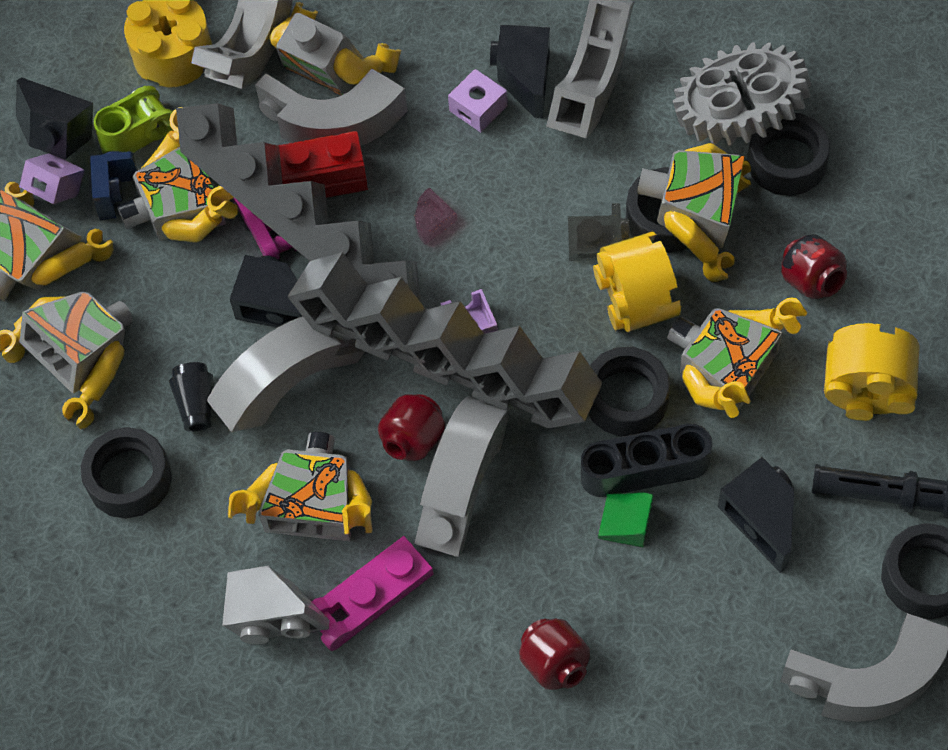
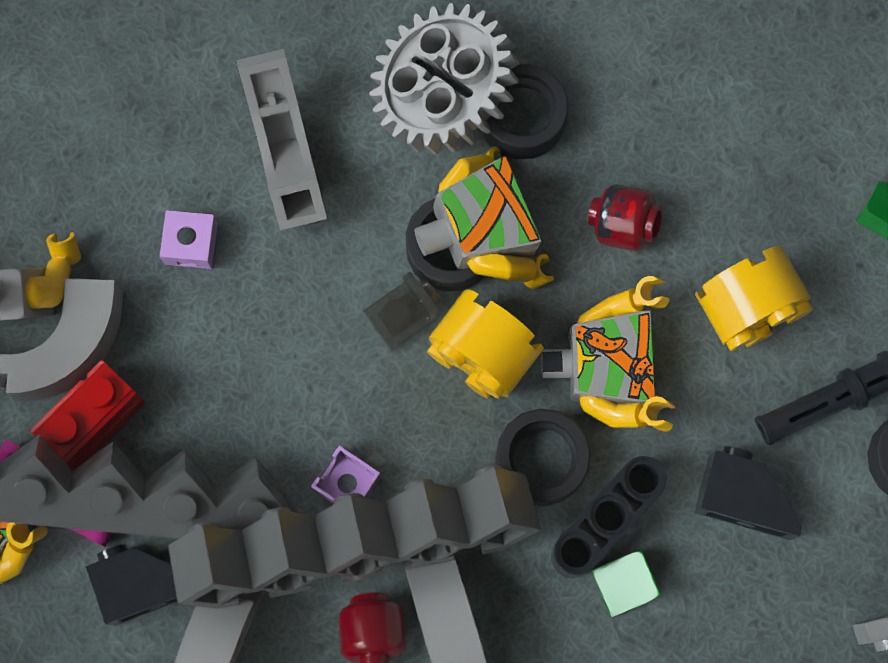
camera: 40 degrees left, 15 degrees up
(432, 216) = (230, 391): clear pink tile -> none
(523, 64) = (208, 173): black slope -> none

